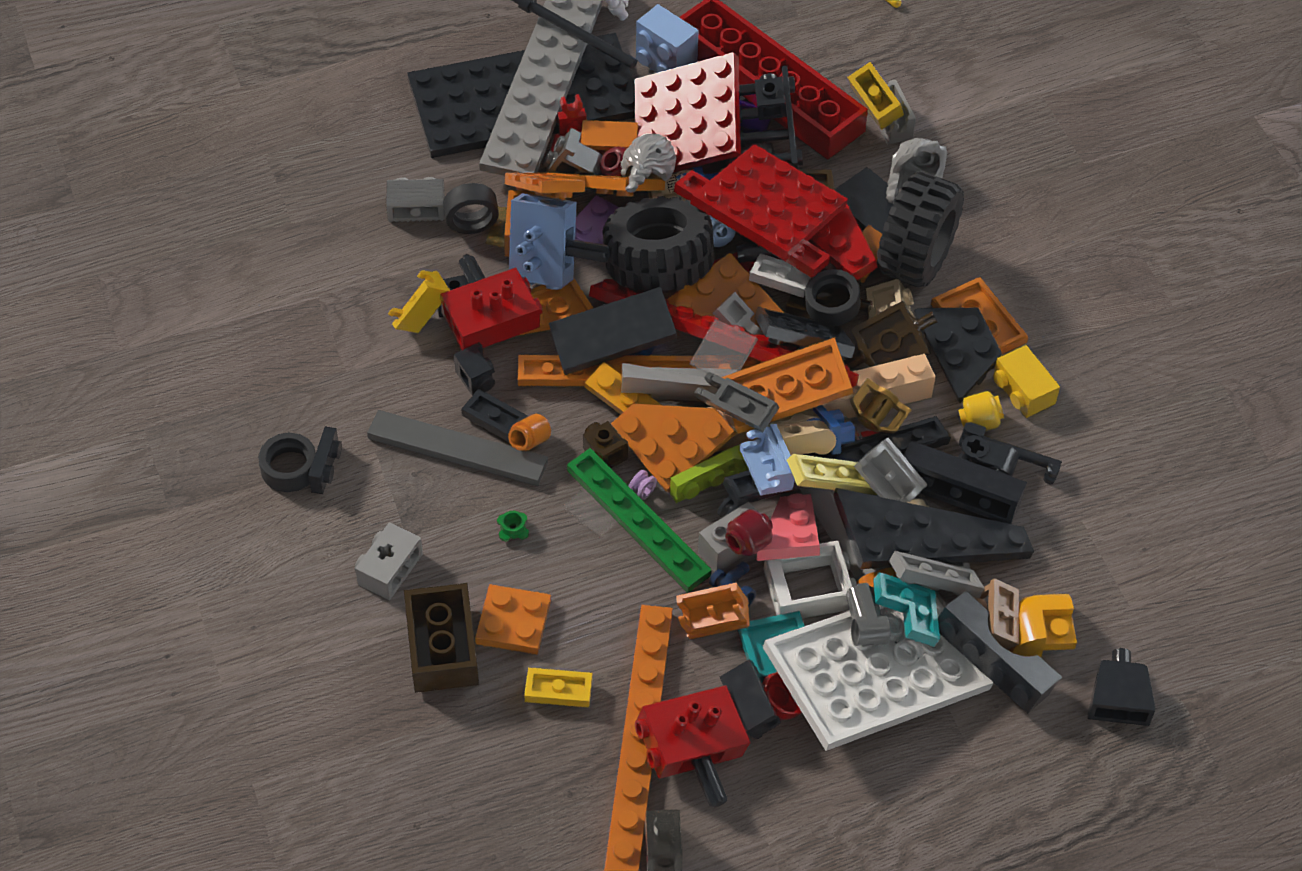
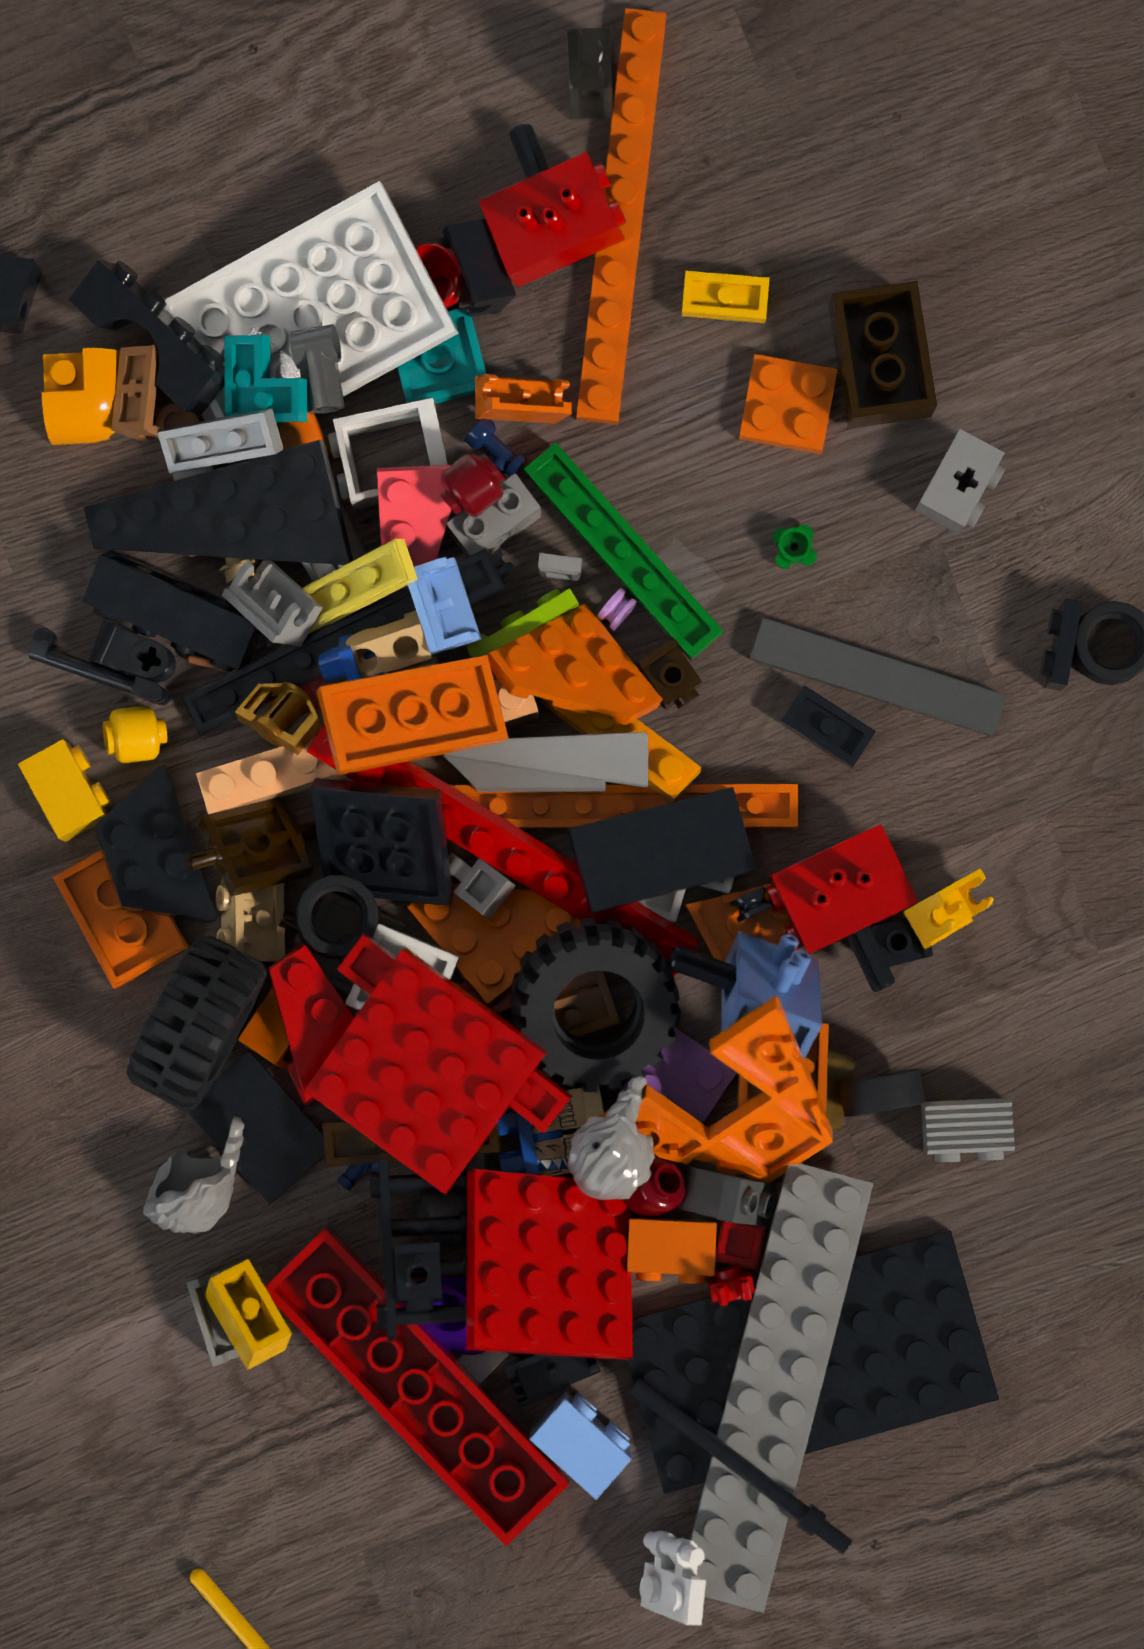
camera: 175 degrees left, 30 degrees up
(474, 369) = (858, 801): black brick -> none
(529, 432) = (777, 688): orange brick -> none
(553, 304) = (751, 904): none -> black bush
(683, 510) = (560, 567): none -> light grey tile
(723, 350) = (501, 799): clear piece -> none
(738, 402) = (484, 682): dark grey hinge -> none

